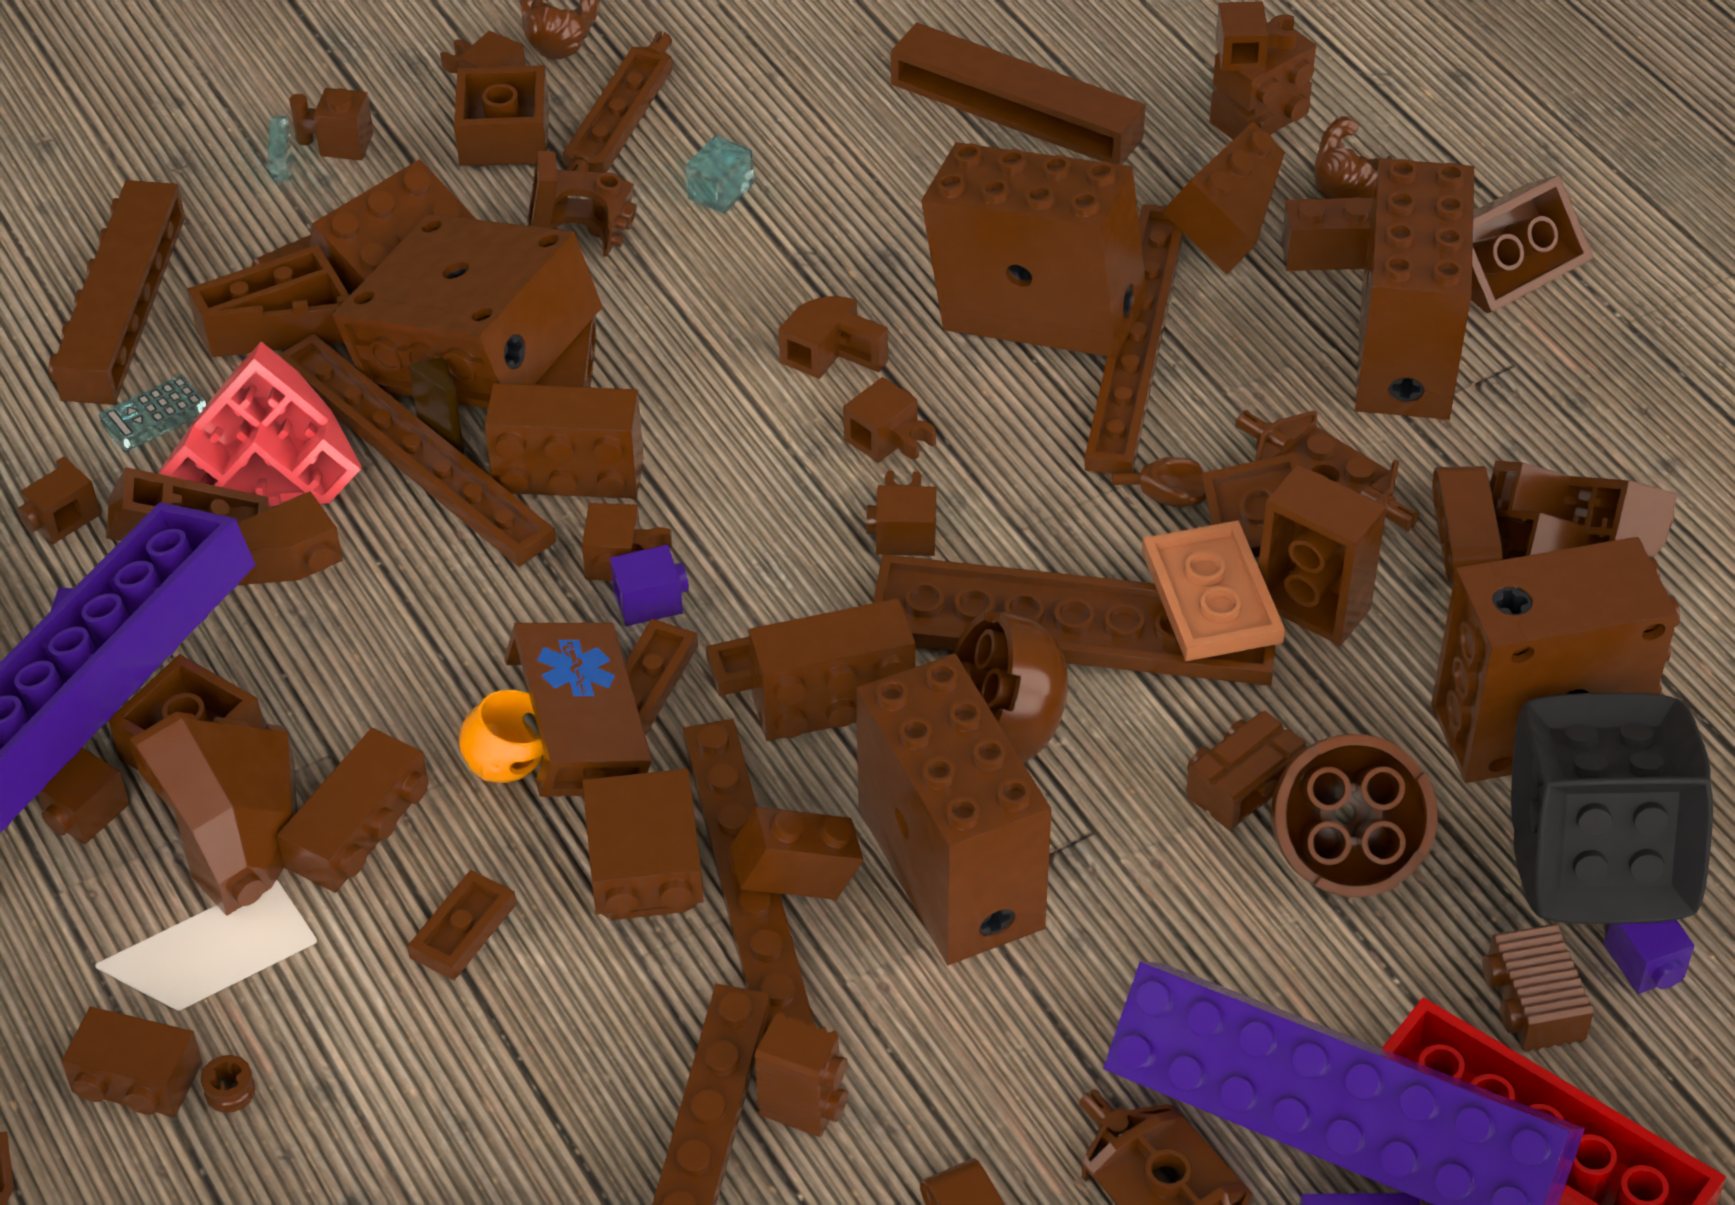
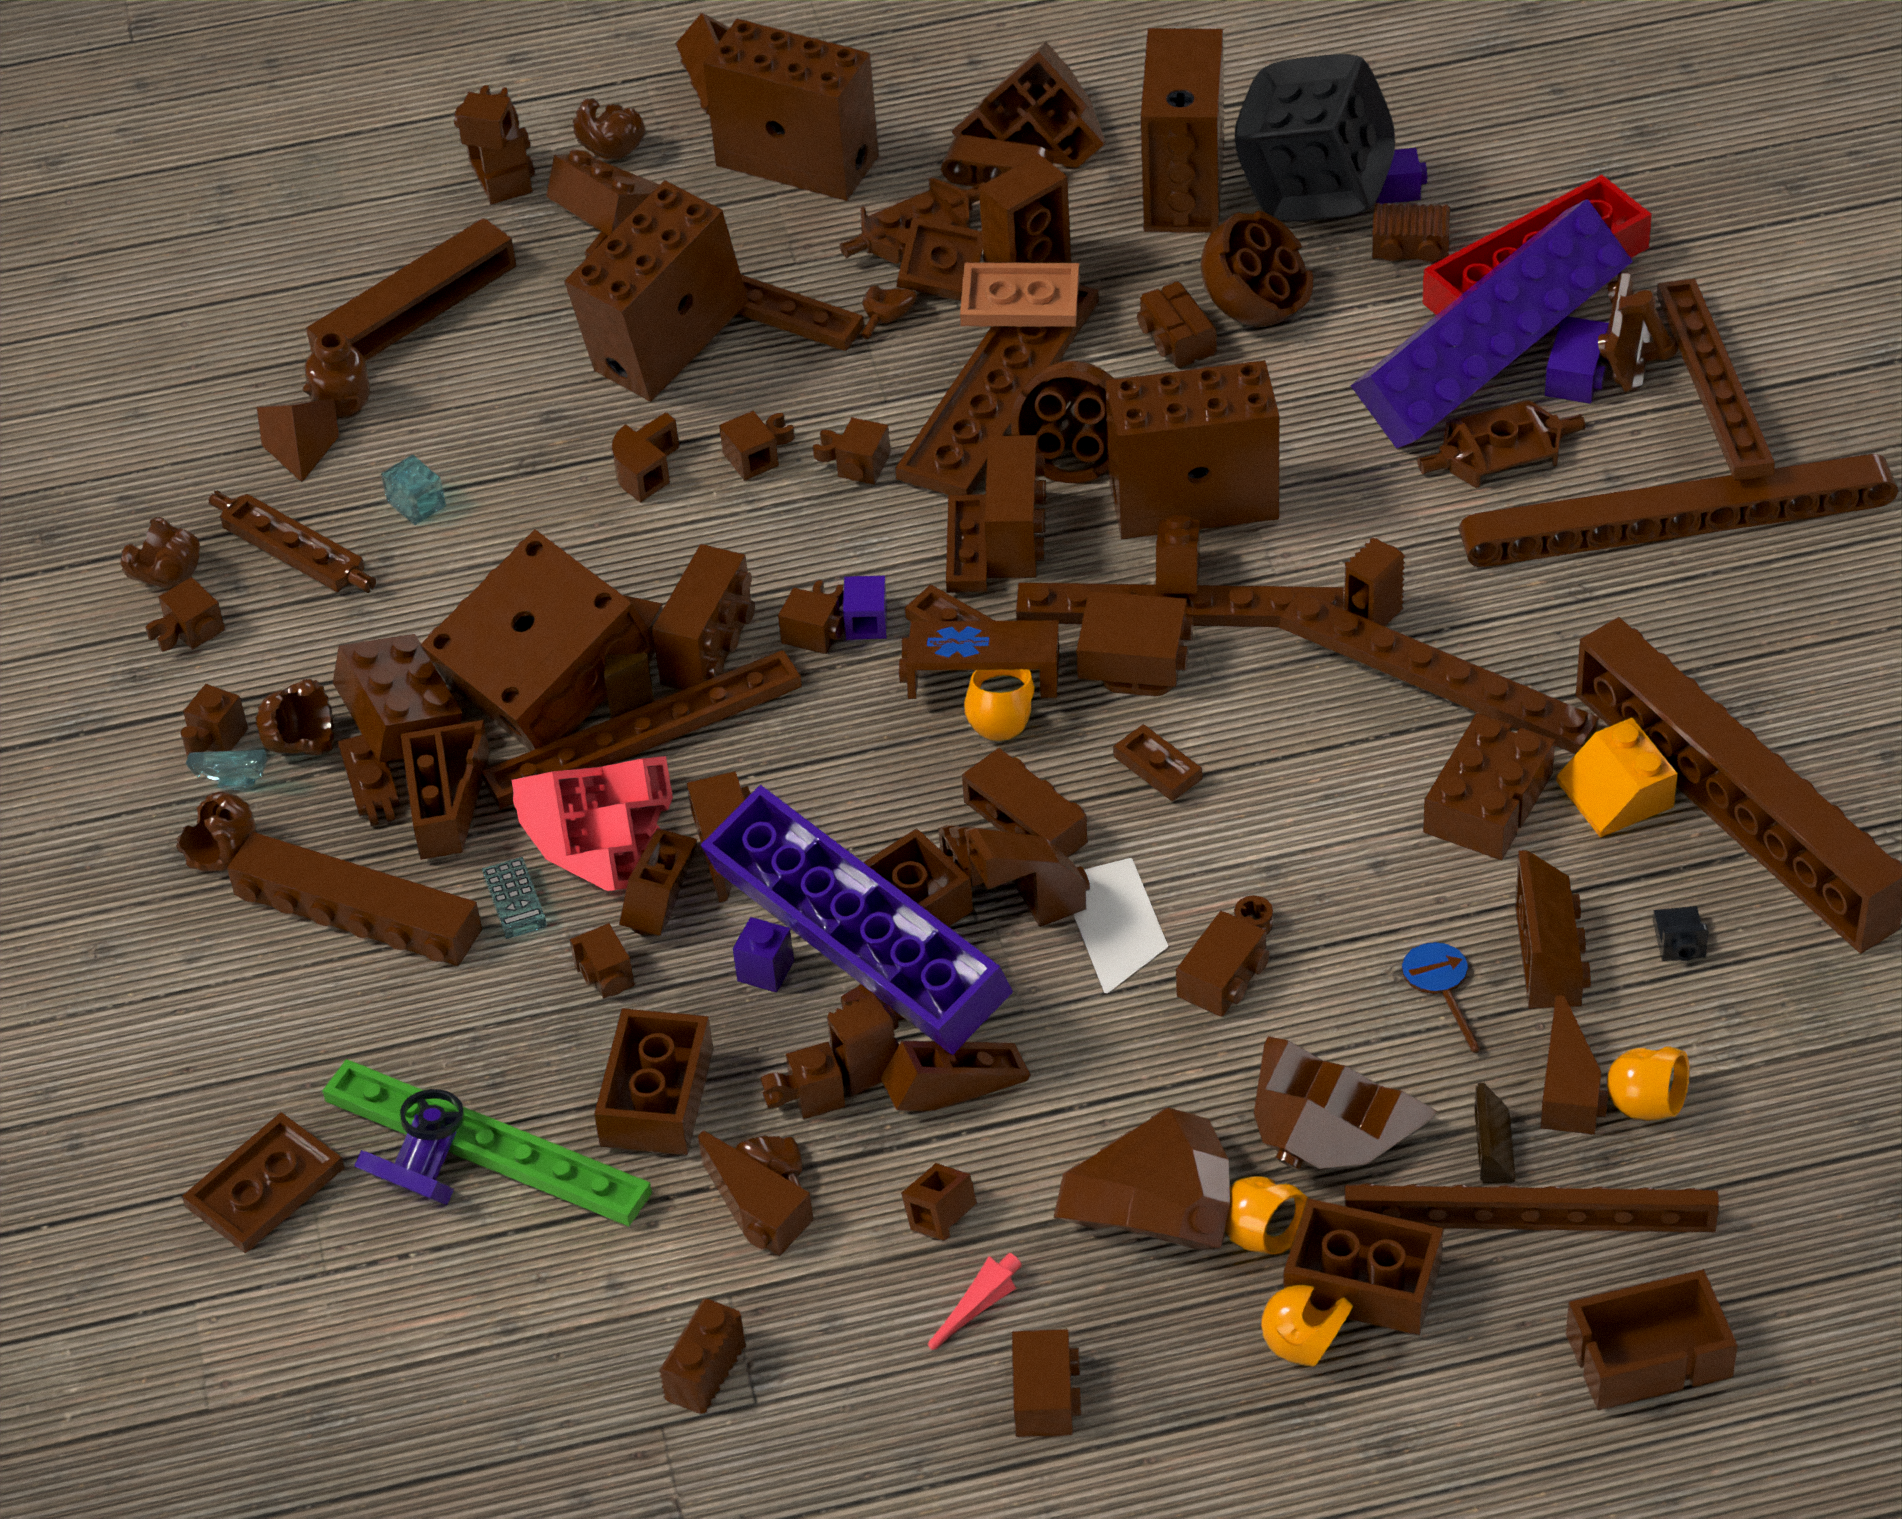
camera: 70 degrees left, 0 degrees up
(195, 168) = (220, 832): none -> reddish brown hair
(344, 171) = (297, 720): none -> reddish brown hair
(501, 115) = (271, 608): reddish brown brick -> none
(604, 215) = (413, 571): reddish brown tile -> none
(781, 73) = (299, 433): none -> reddish brown slope
(854, 64) = (337, 373): none -> reddish brown piece
(1326, 233) = (679, 141): reddish brown brick -> none

